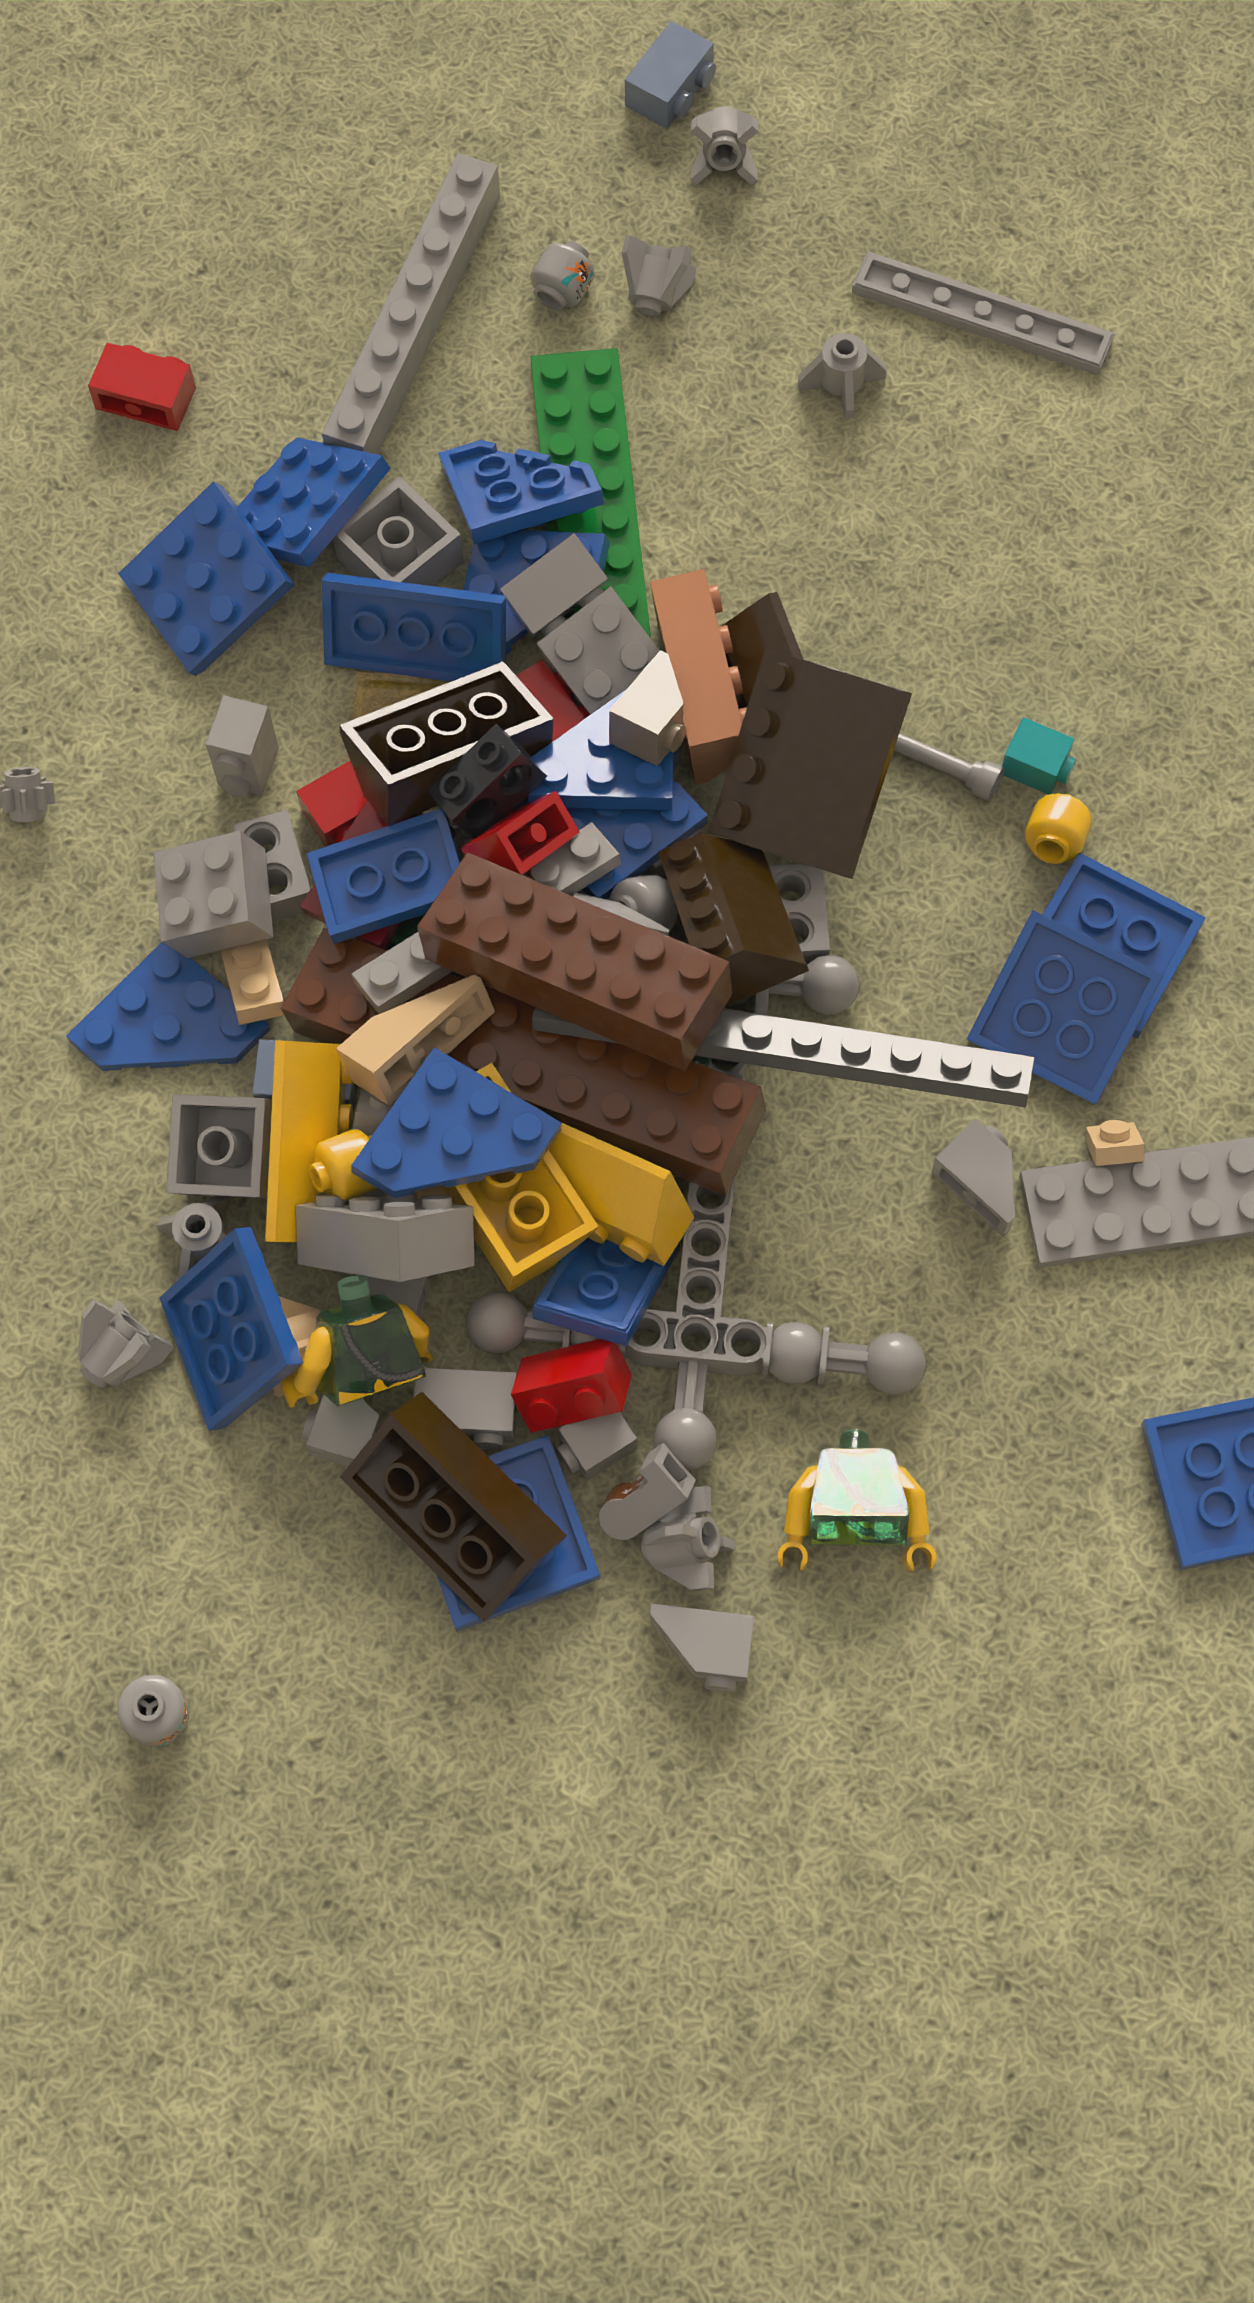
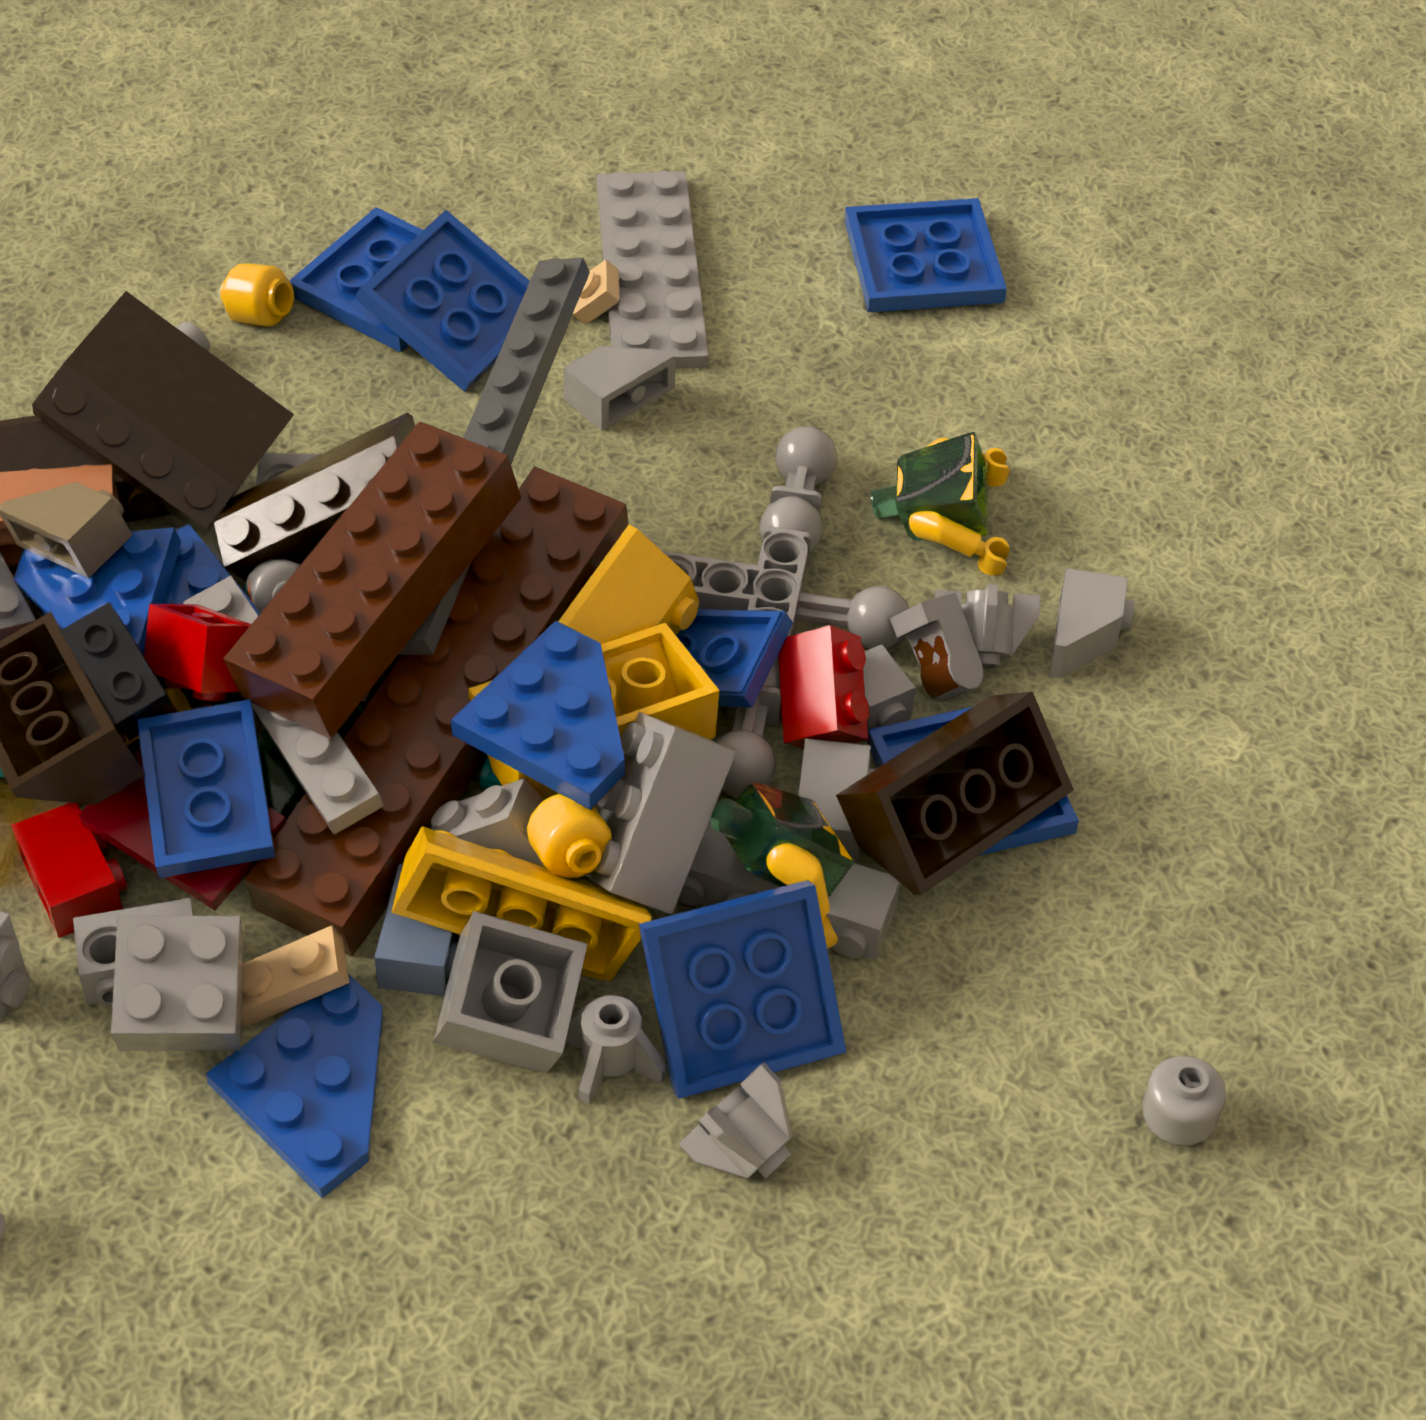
camera: 90 degrees left, 20 degrees down
(395, 1043) = (432, 763): tan slope -> none
(1039, 756) = (177, 294): teal brick -> none

